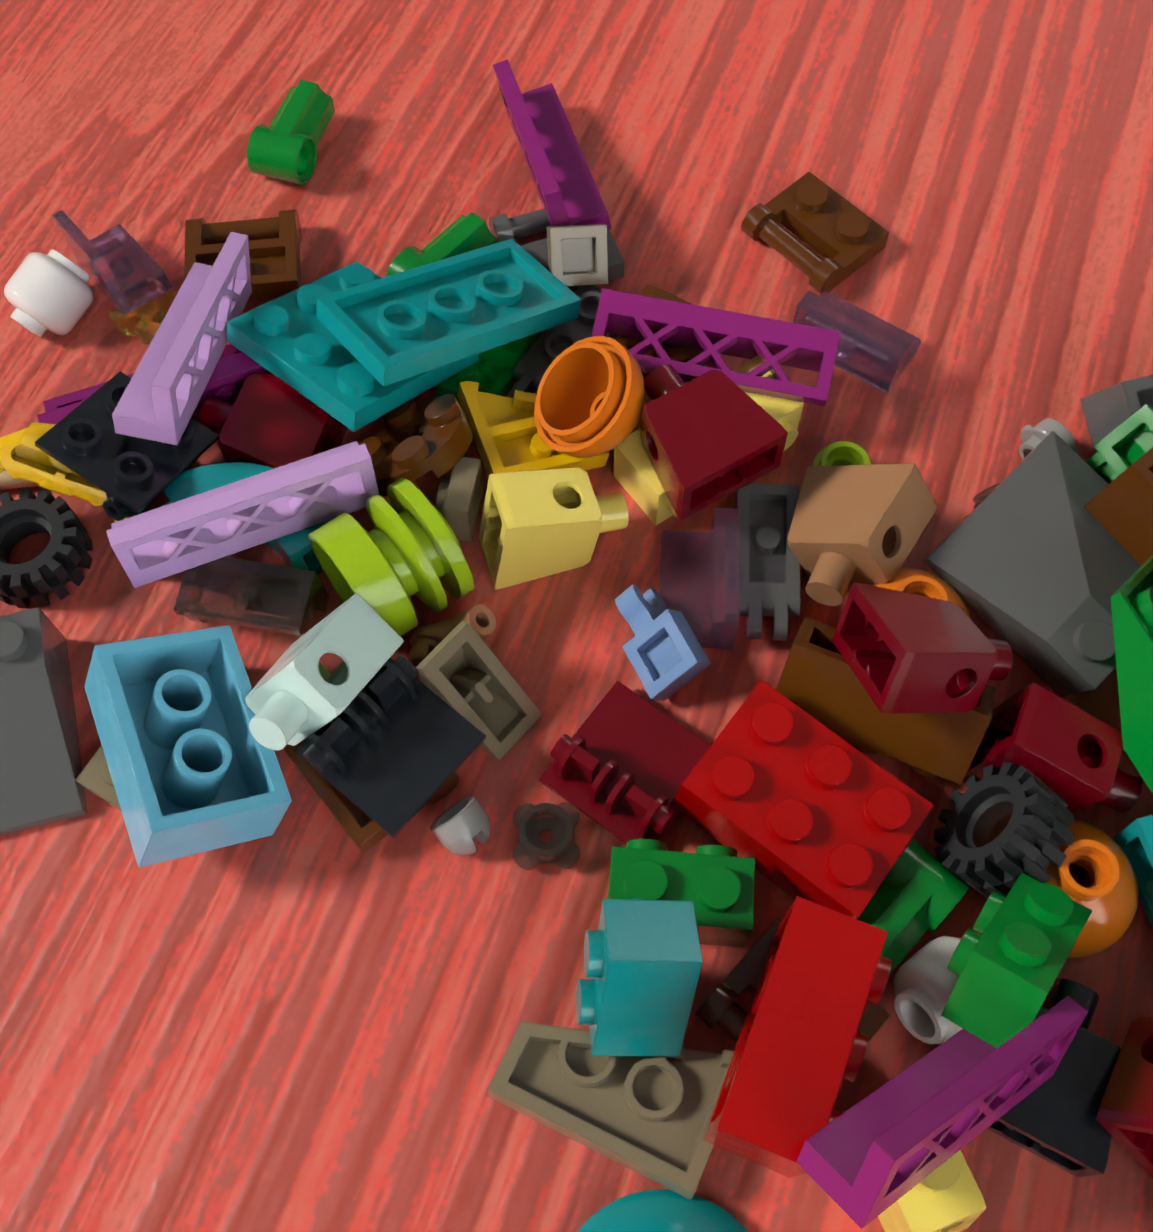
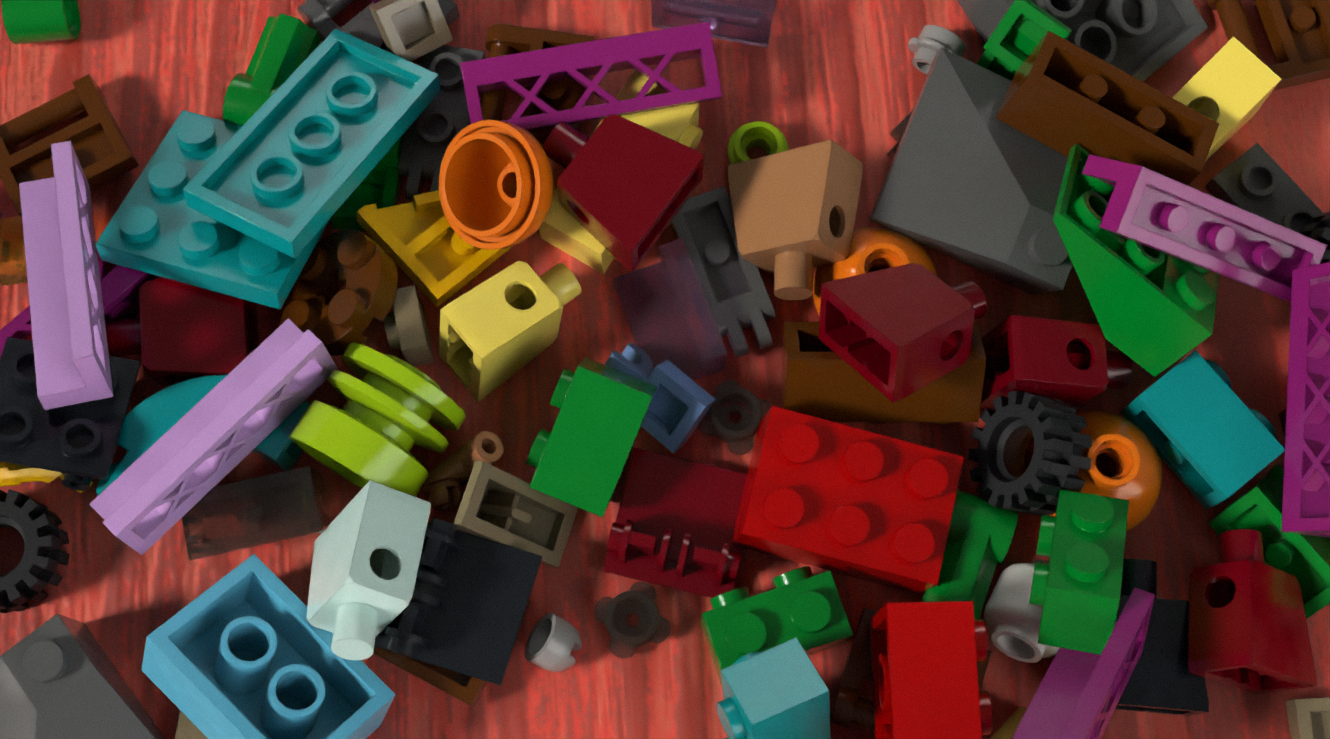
camera: 25 degrees left, 10 degrees up
(578, 646) = (590, 436): none -> green brick
(725, 673) = (731, 399): none -> clear smoke plate

